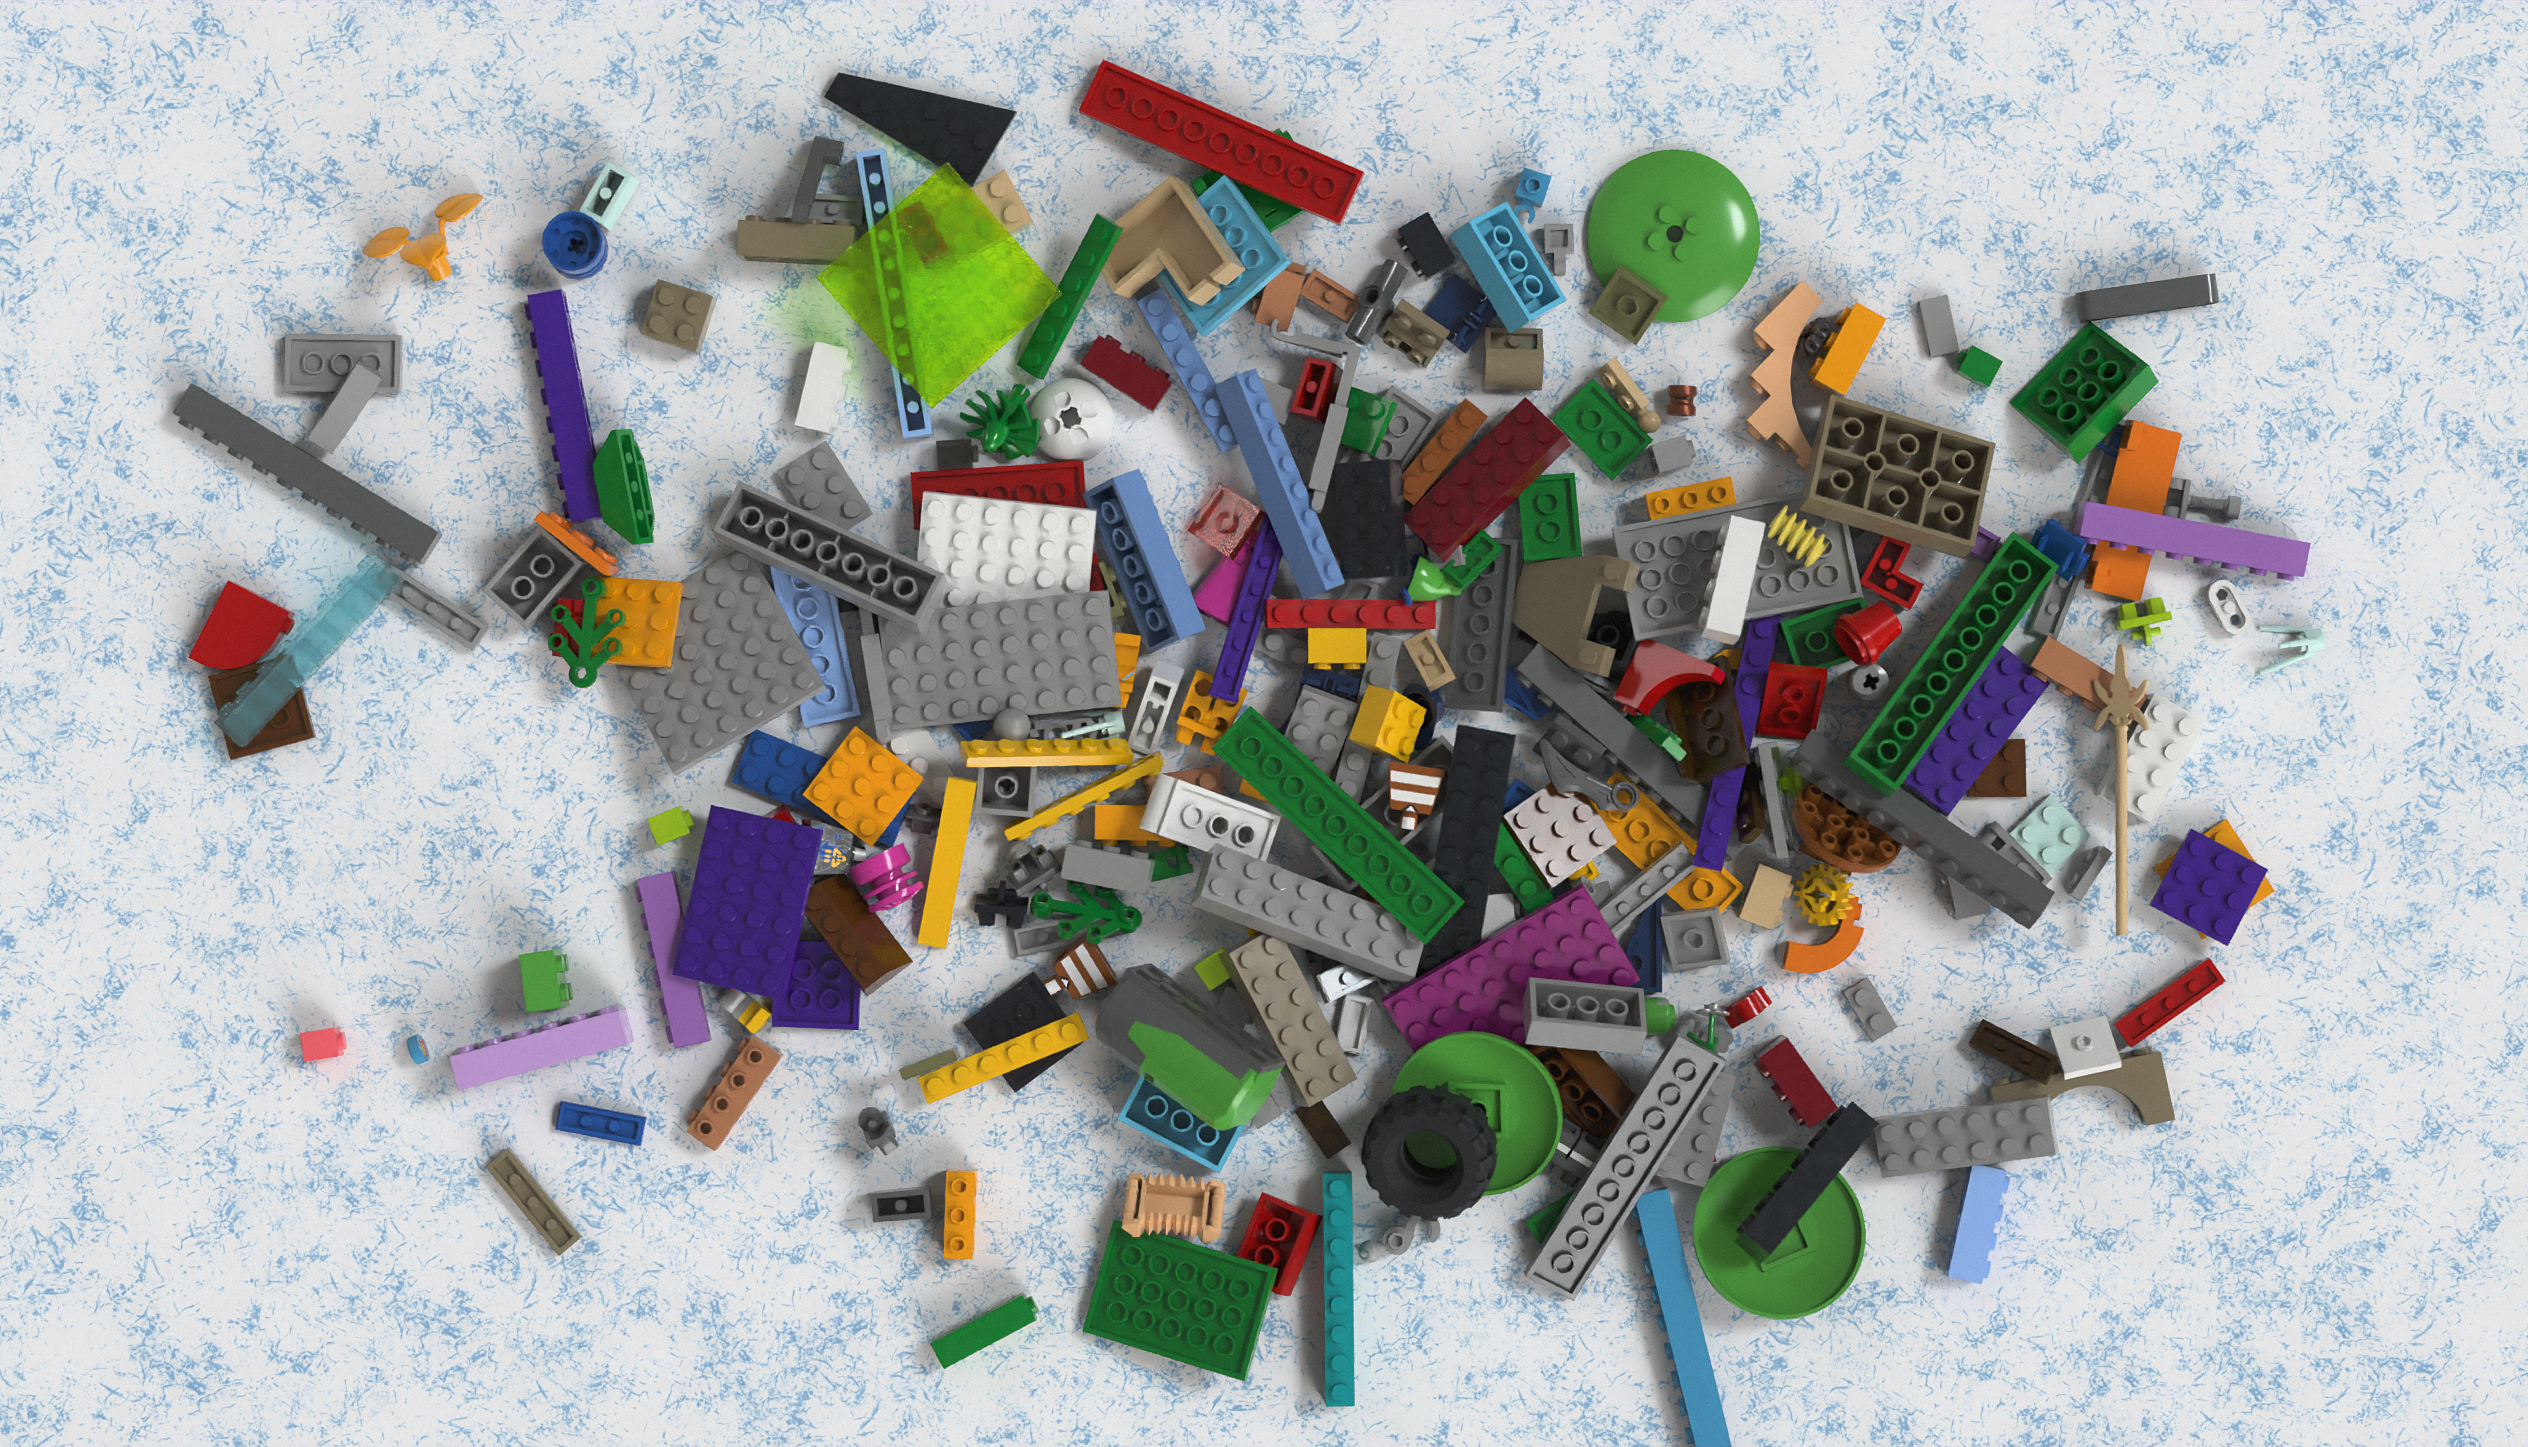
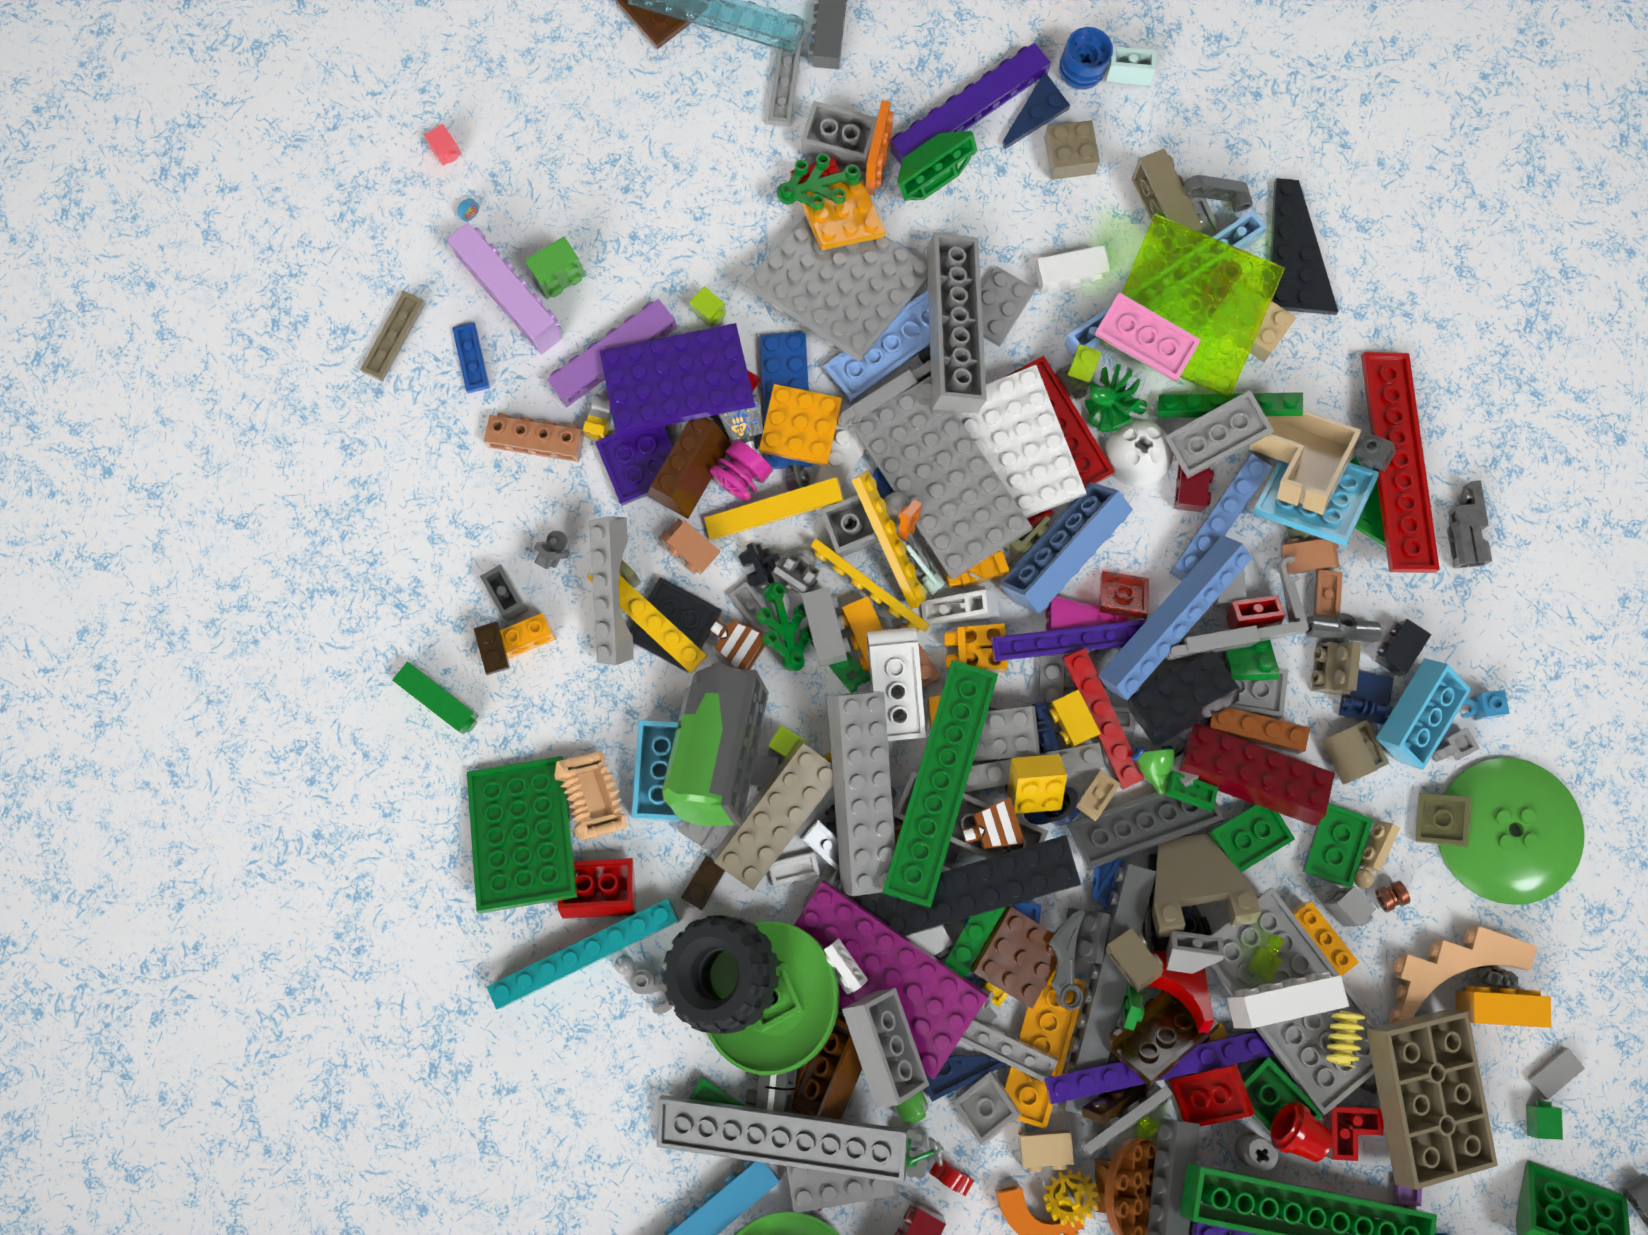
camera: 65 degrees right, 10 degrees down
(606, 323) = (1041, 107): none -> dark blue wing
(915, 1068) = (608, 544): none -> light grey arch
(944, 974) = (689, 545): none -> nougat hinge
(947, 437) = (1084, 363): none -> lime brick
(954, 357) = (1147, 337): none -> bright pink plate
(962, 1243) = (492, 648): none -> dark brown plate
(1033, 721) = (908, 517): none -> orange plate
(1100, 331) = (1219, 434): none -> light grey plate
(1201, 171) = (1374, 452): none -> dark grey brick
(1335, 110) = (1466, 529): none -> flat silver plate
(1486, 1018) = (846, 969): none -> white bracket
(1617, 714) = (1135, 960): none -> dark tan brick
(1637, 650) = (1192, 951): none -> light grey slope
(1683, 578) = (1264, 961): none -> clear neon green plate

